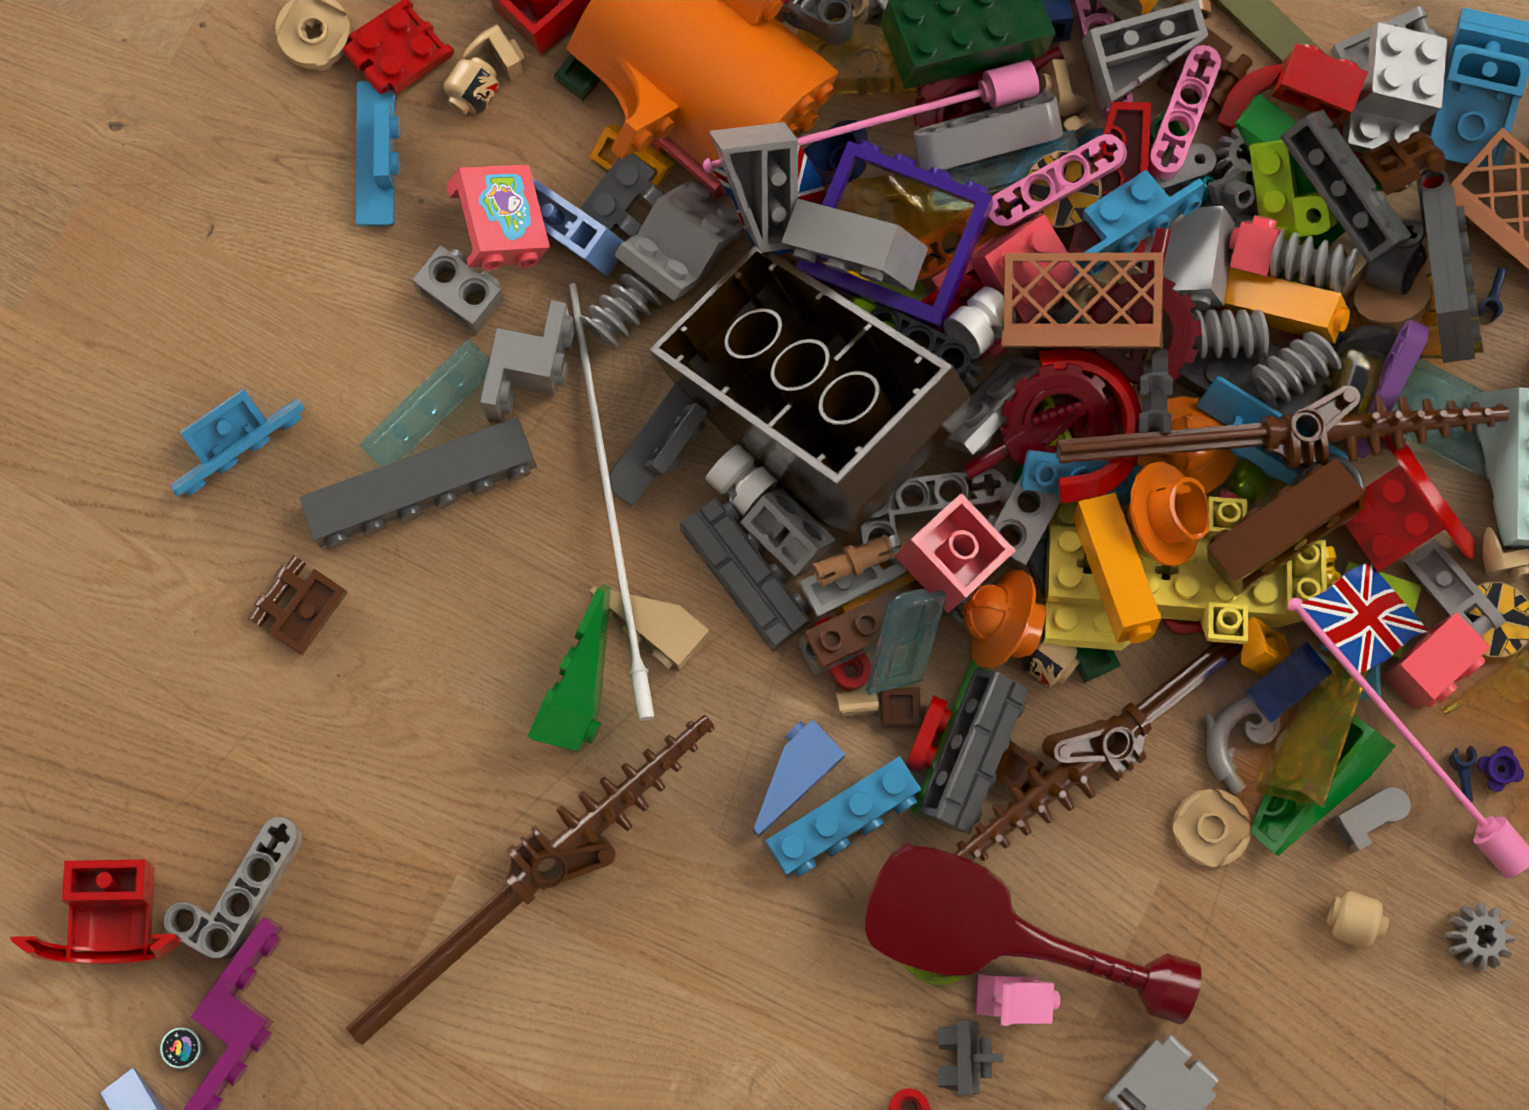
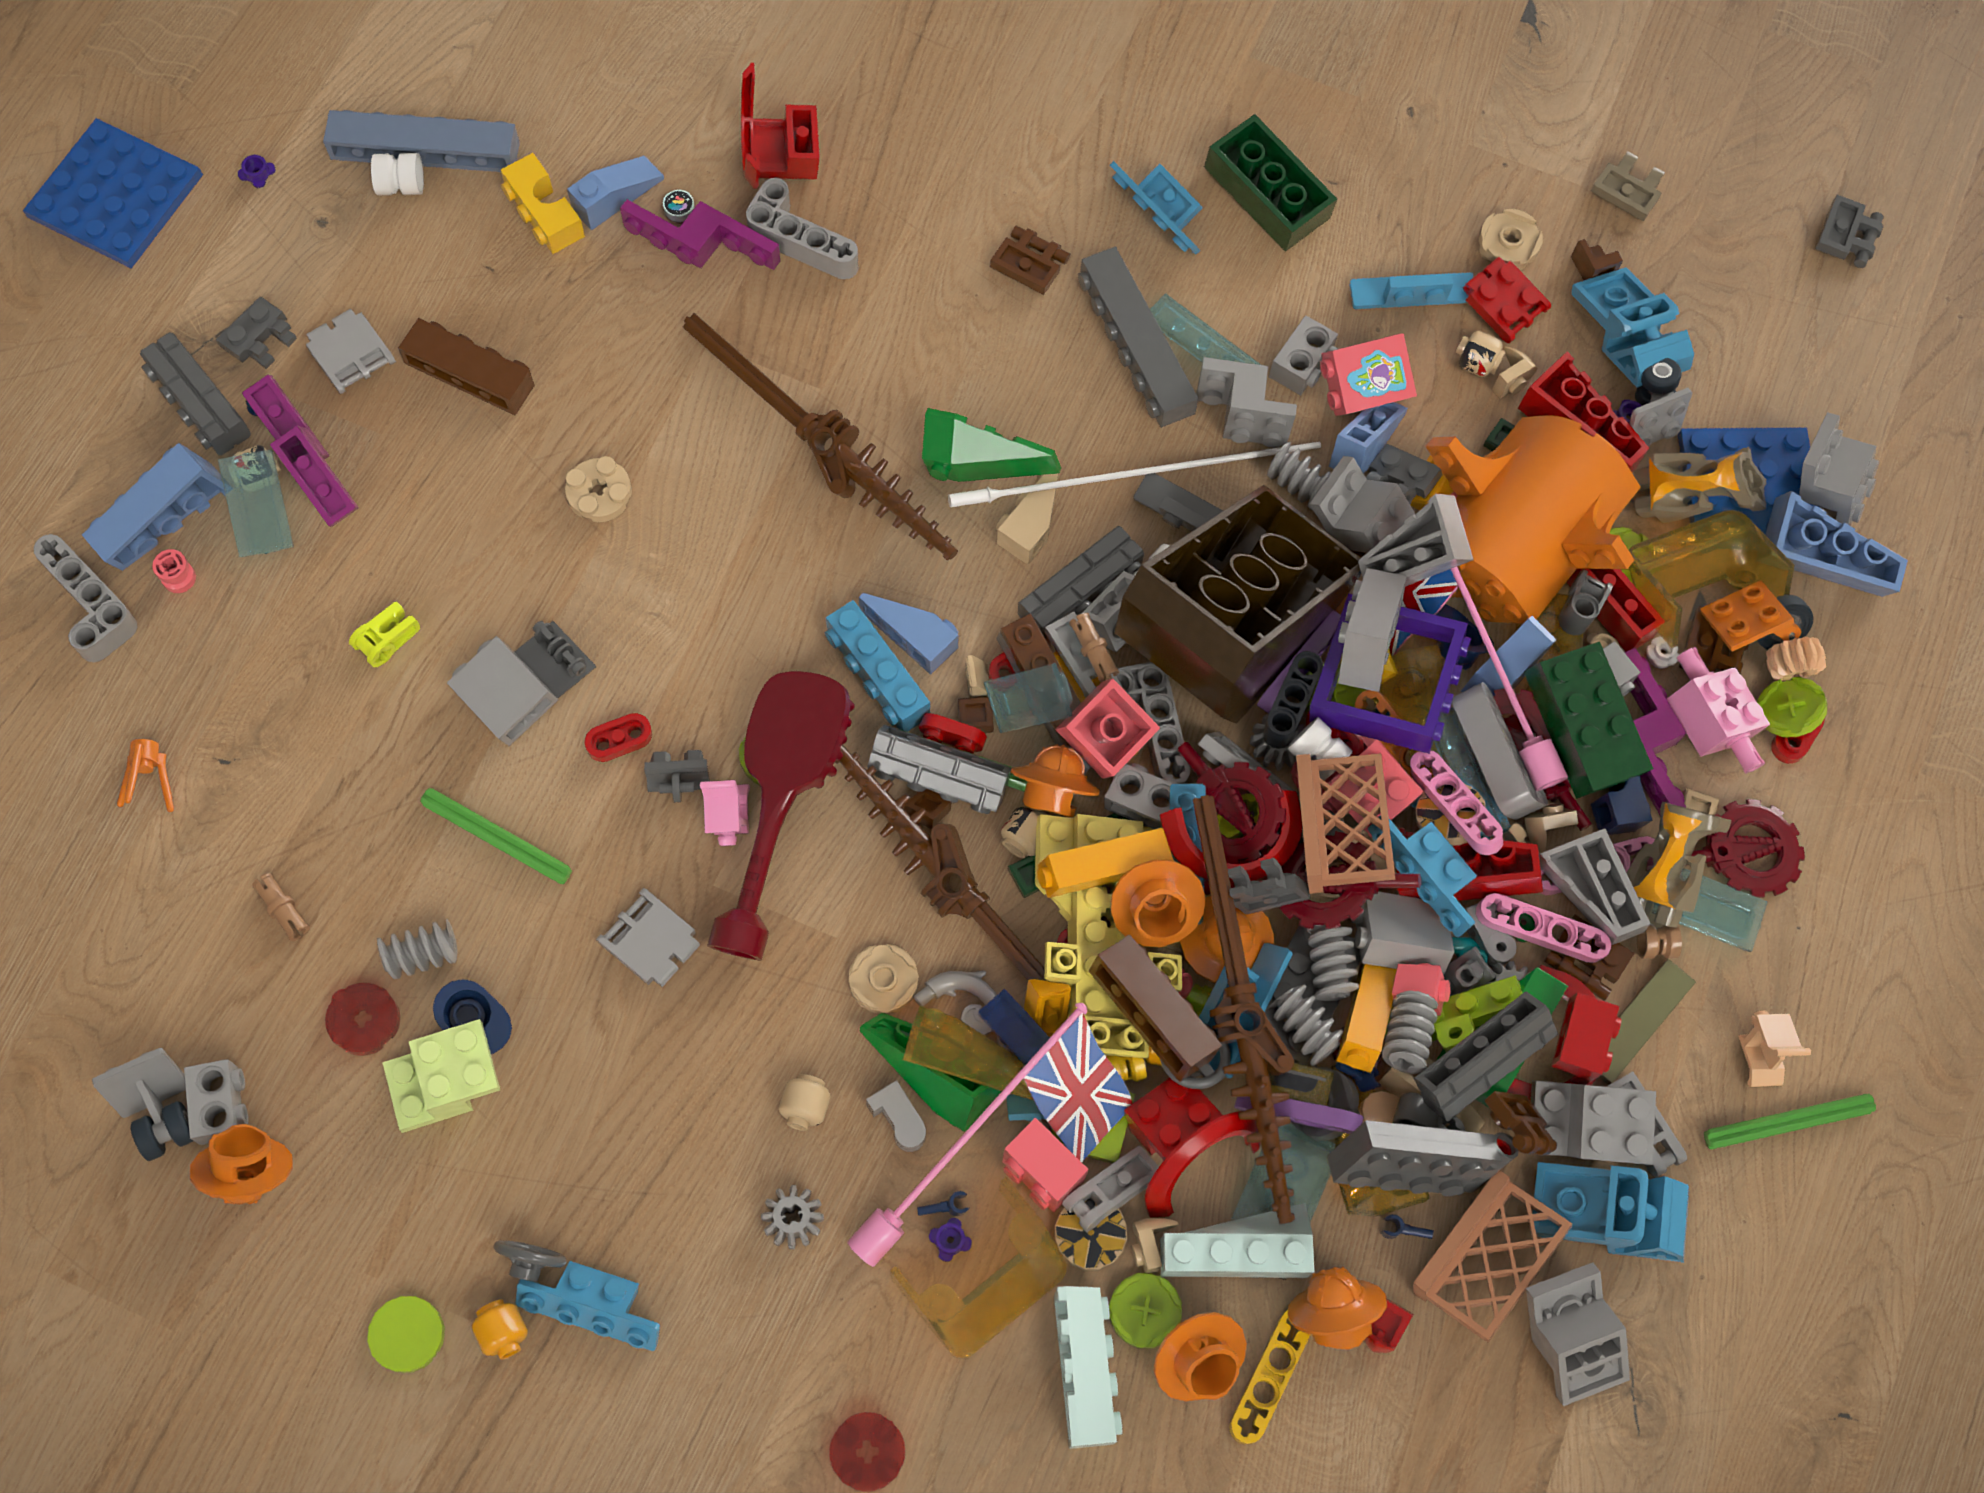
camera: 85 degrees right, 10 degrees down
(216, 303) = (1270, 182): none -> dark green brick
(881, 94) = (1516, 656): none -> medium blue slope

